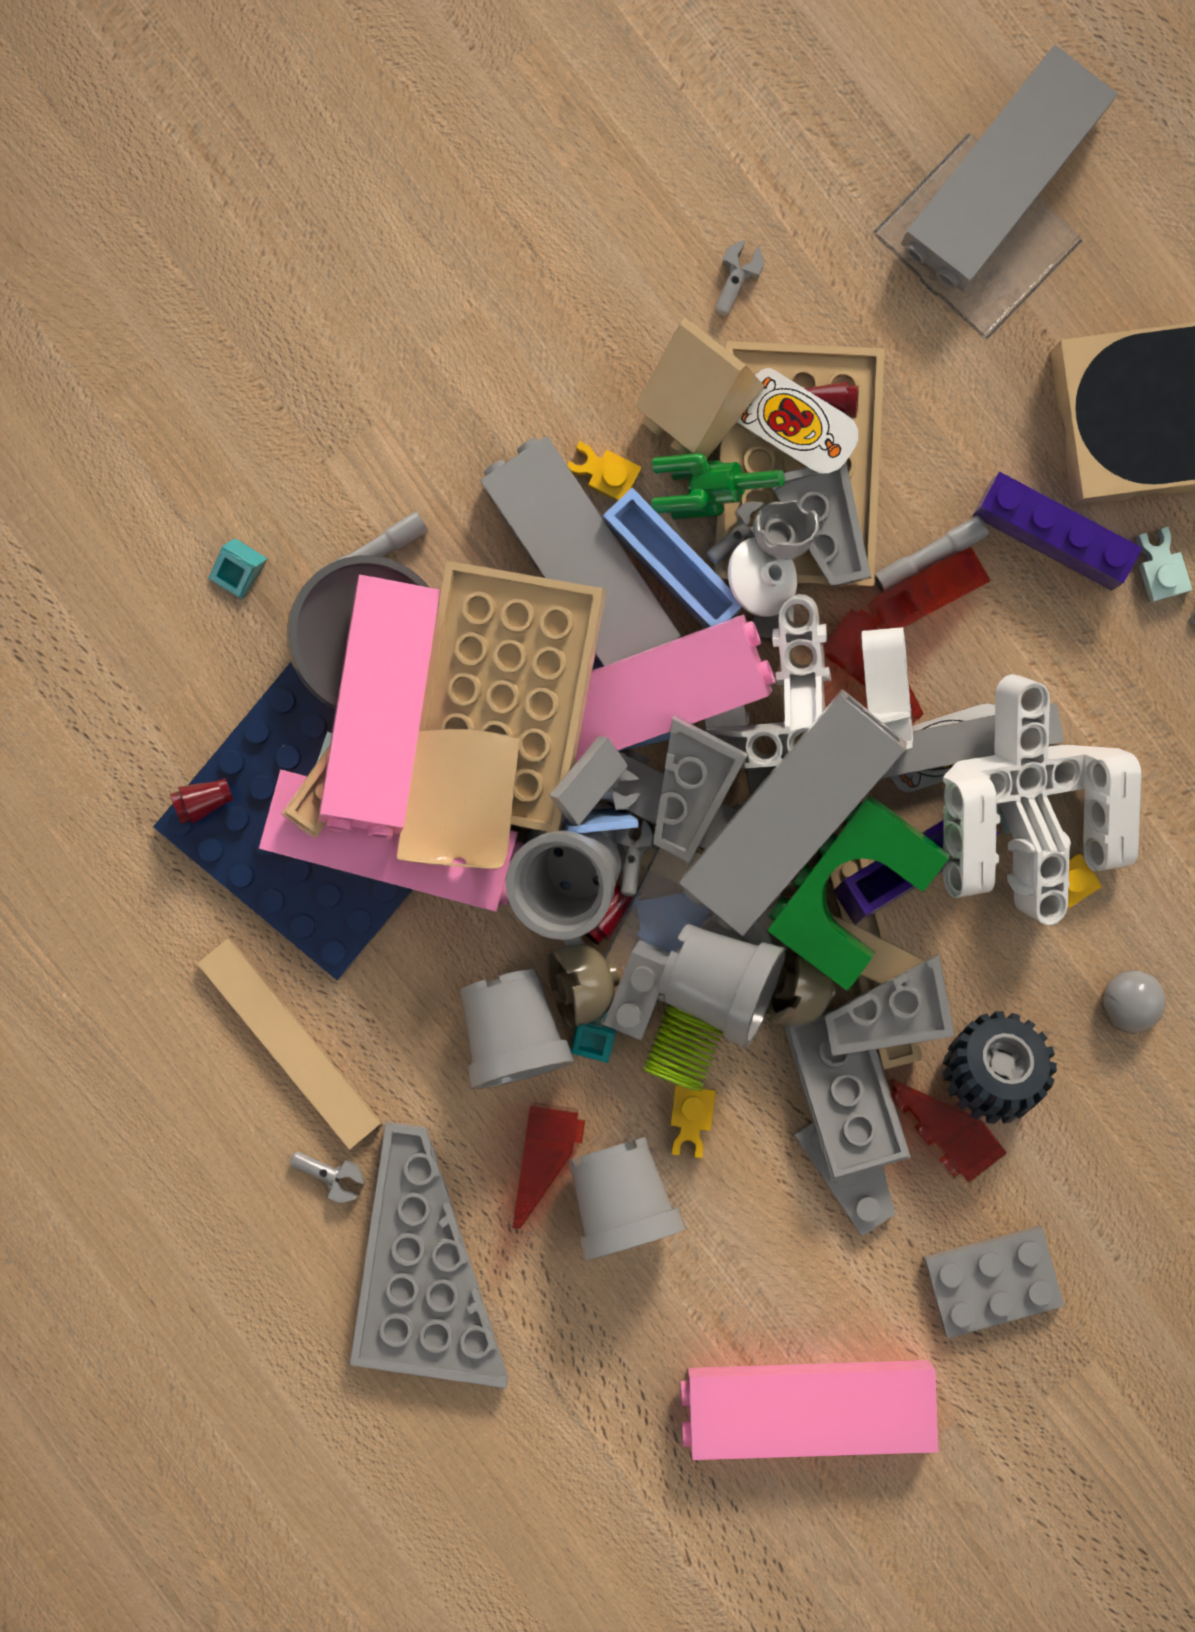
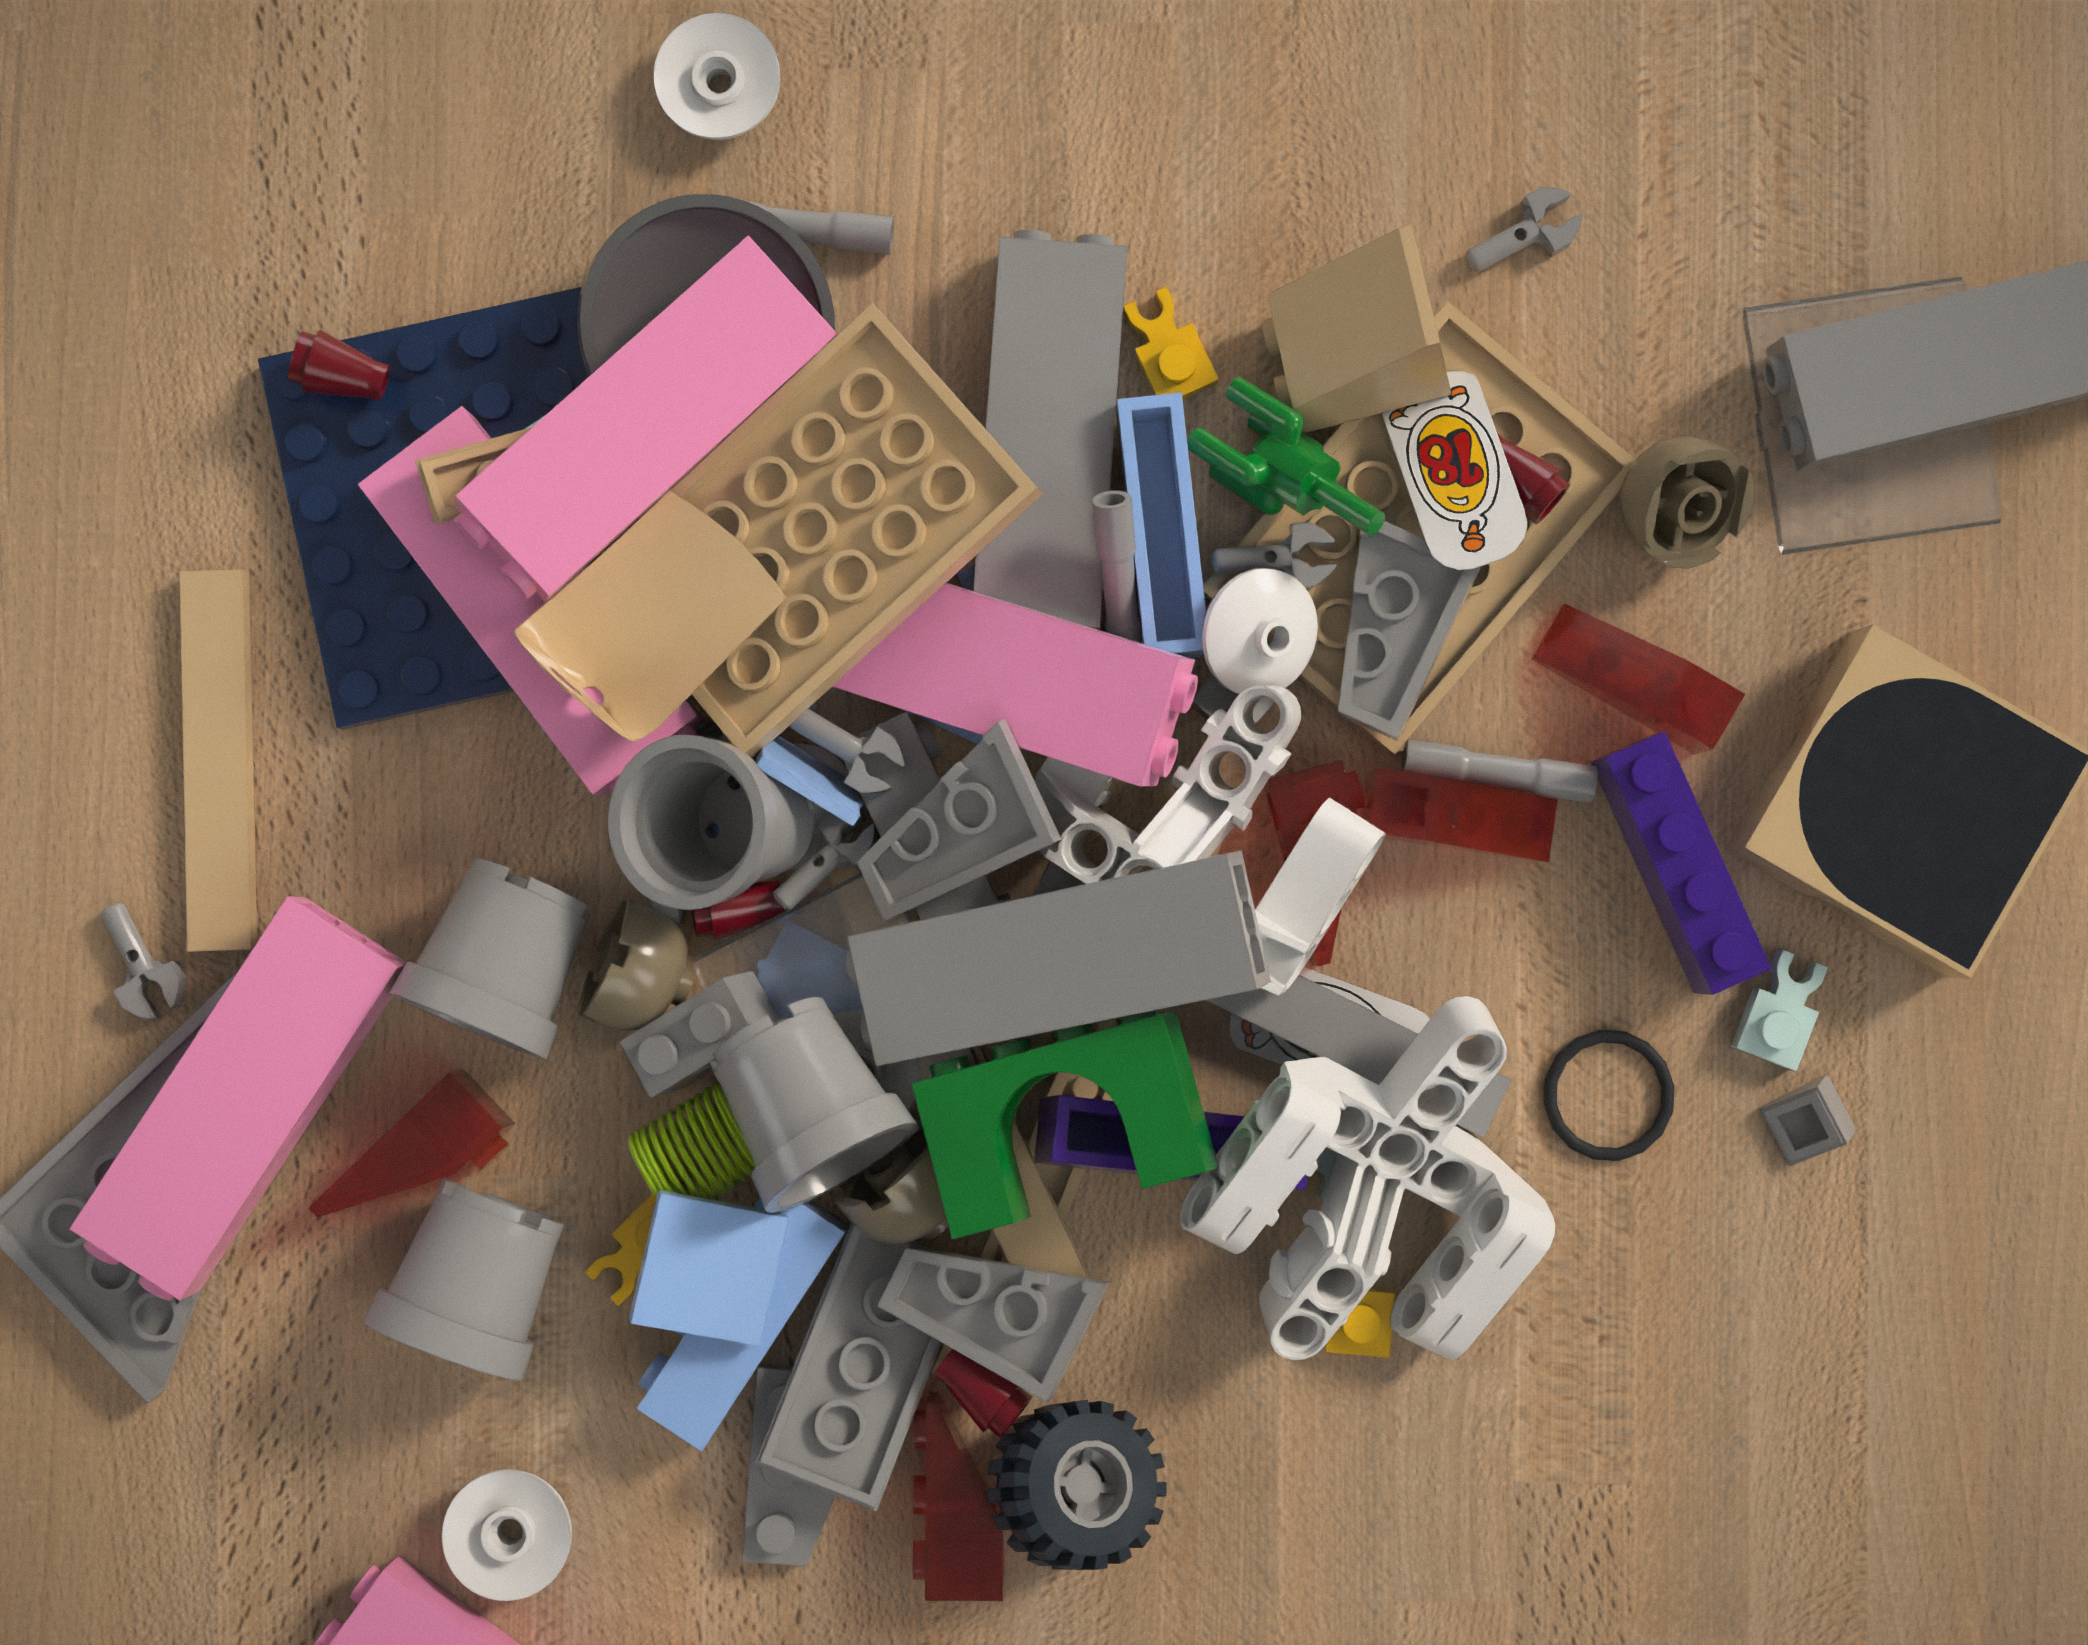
camera: 35 degrees right, 0 degrees up
(236, 567) = (616, 116): teal slope -> none
(264, 491) = (714, 47): none -> white dish
(436, 1200) = (238, 1100): none -> bright pink brick
(588, 780) = (833, 718): light grey tile -> none
(594, 1040) = (597, 1054): teal slope -> none
(661, 590) = (1116, 550): none -> light grey piece
(736, 1101) = (708, 1268): none -> light blue tile
(741, 1333) = (485, 1557): none -> white dish
(768, 1116) = (707, 1374): none -> light blue brick
(785, 529) = (1332, 593): light grey hair -> none
(918, 1058) = (983, 1394): none -> dark red cone
(920, 349) = (1685, 499): none -> dark tan cylinder
(965, 455) = (1639, 679): none -> clear red slope
(1116, 638) = (1651, 1056): none -> black piece
(1134, 1001) = (1316, 1534): light grey hair -> none

